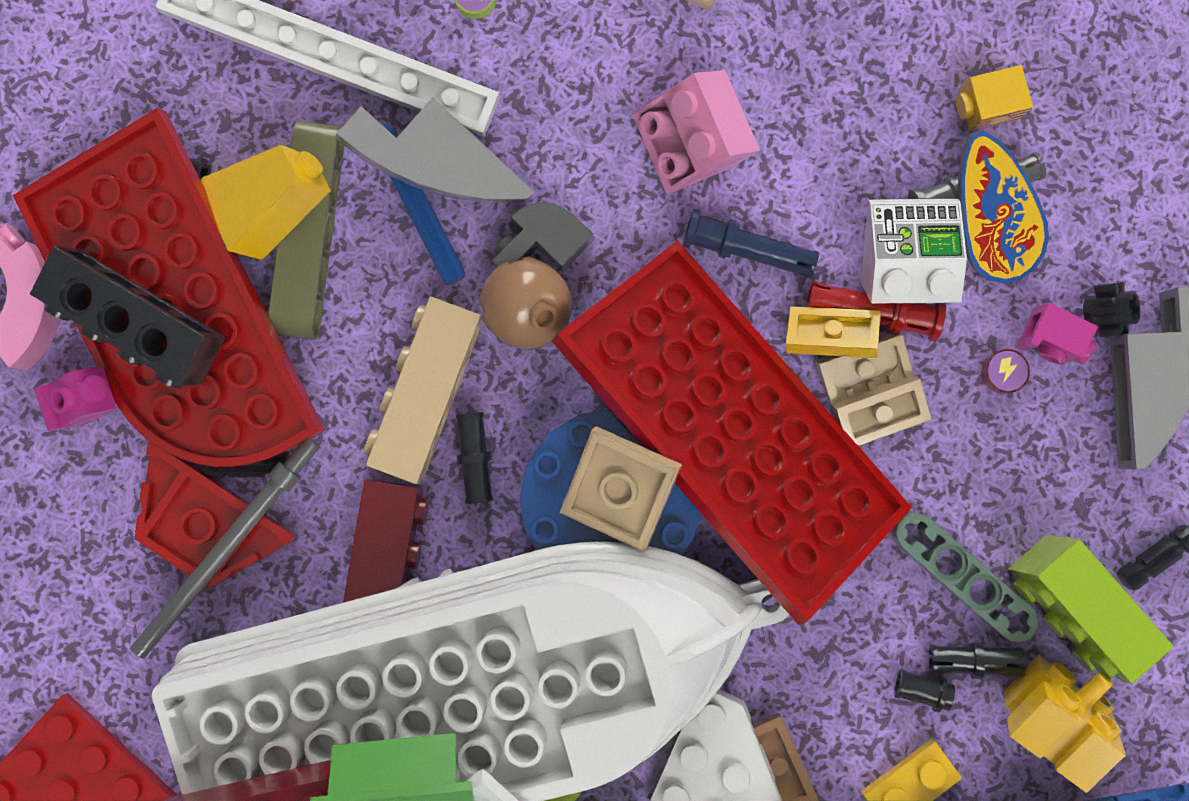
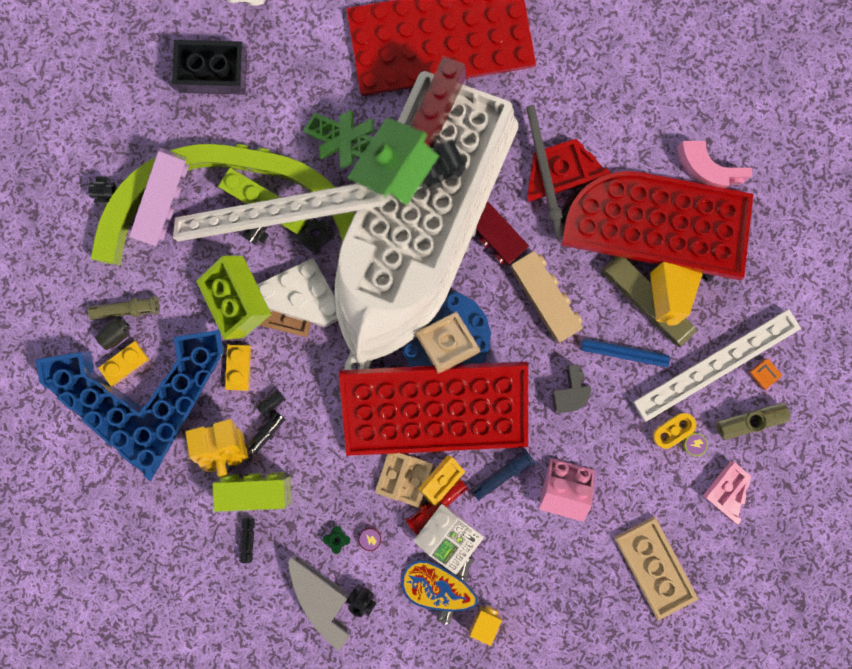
camera: 135 degrees right, 0 degrees up
(64, 290) = (637, 219): black brick -> none
(75, 398) = (650, 157): dark pink brick -> none
(339, 717) = (447, 166): none -> black brick
(434, 156) = (639, 374): light grey slope -> none
(474, 457) = (503, 296): black pin -> none
(479, 41) = (674, 432): none -> yellow plate
(526, 303) = (550, 364): medium nougat cylinder -> none
(961, 580) = (302, 457): sand green beam -> none
(1038, 429) = (336, 533): none -> dark green plate
(1058, 335) = (367, 571): dark pink brick -> none

